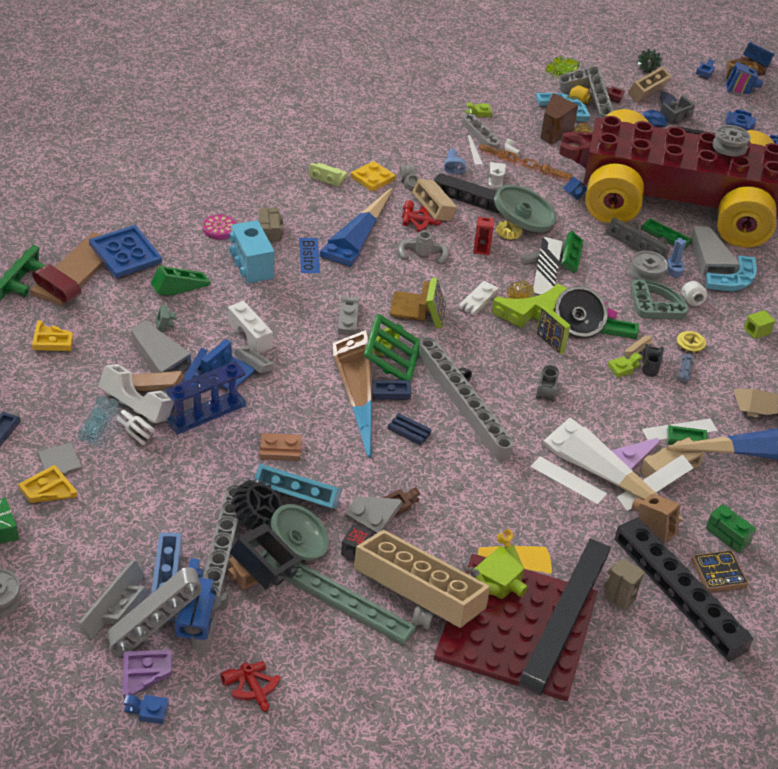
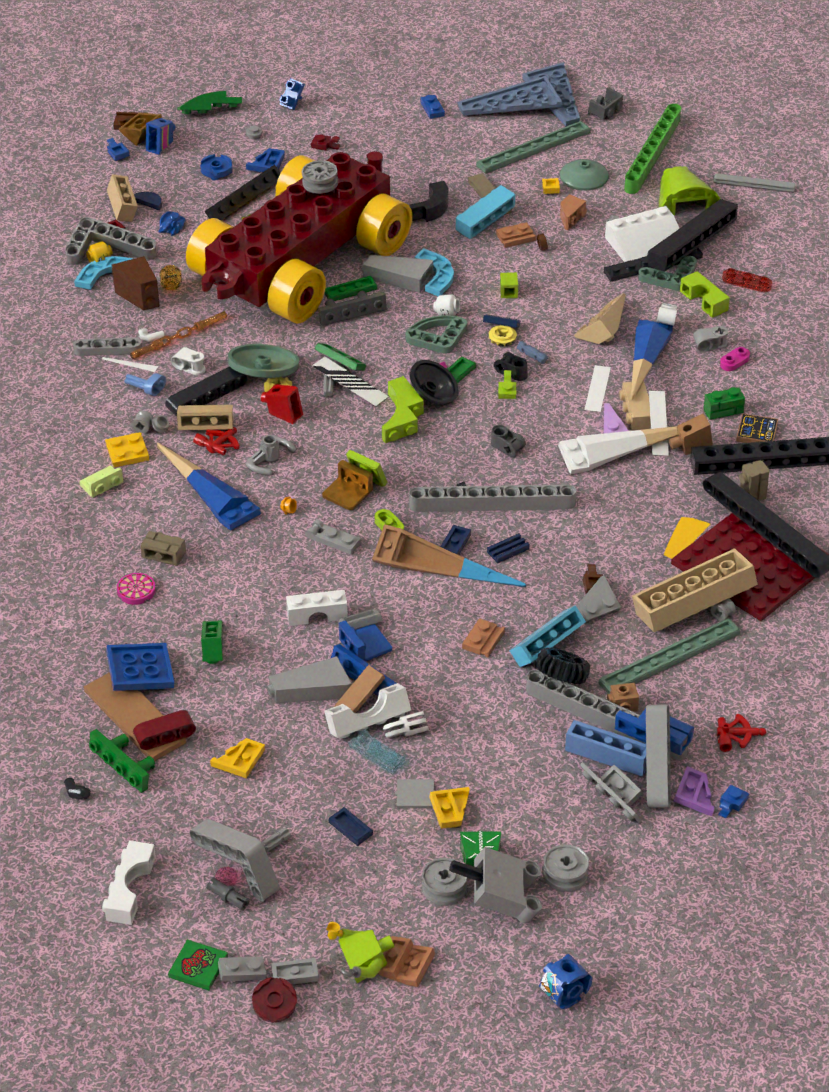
camera: 60 degrees left, 0 degrees up
(164, 318) = (263, 666): sand green tile -> none
(209, 410) = (410, 659): clear blue fence -> none
(252, 251) = (215, 574): medium azure piece -> none
(256, 565) = (629, 673): black window -> none
(300, 531) = (602, 652): sand green dish -> none
(309, 255) = (222, 538): blue sticker -> none
(353, 538) = (627, 622): black brick -> none
(367, 281) = (288, 505): none -> light orange plate
(399, 329) = (409, 526): green bar -> none
(478, 298) = (363, 442): white hinge -> none
(479, 110) = (68, 332): lime plate -> none
(501, 569) = (707, 542): lime torso -> none
(520, 290) = (379, 411): clear yellow head -> none
(553, 329) = (448, 408): tile -> none
(562, 66) = (40, 244): clear neon green plate -> none
(568, 480) = (617, 475): white sticker -> none
(575, 188) = (247, 317): blue bracket -> none
(638, 346) = (489, 368): tan axle -> none
(648, 266) = (393, 318): light grey wheel -> none
(654, 60) = (80, 180): dark green gear -> none
(675, 259) = (396, 300): medium blue piece -> none
(677, 113) = (173, 198): dark grey window -> none
(677, 433) = (610, 386): green tile -> none
(707, 334) = (501, 320): none -> dark blue tile
(758, 54) = (123, 104): blue hinge -> none

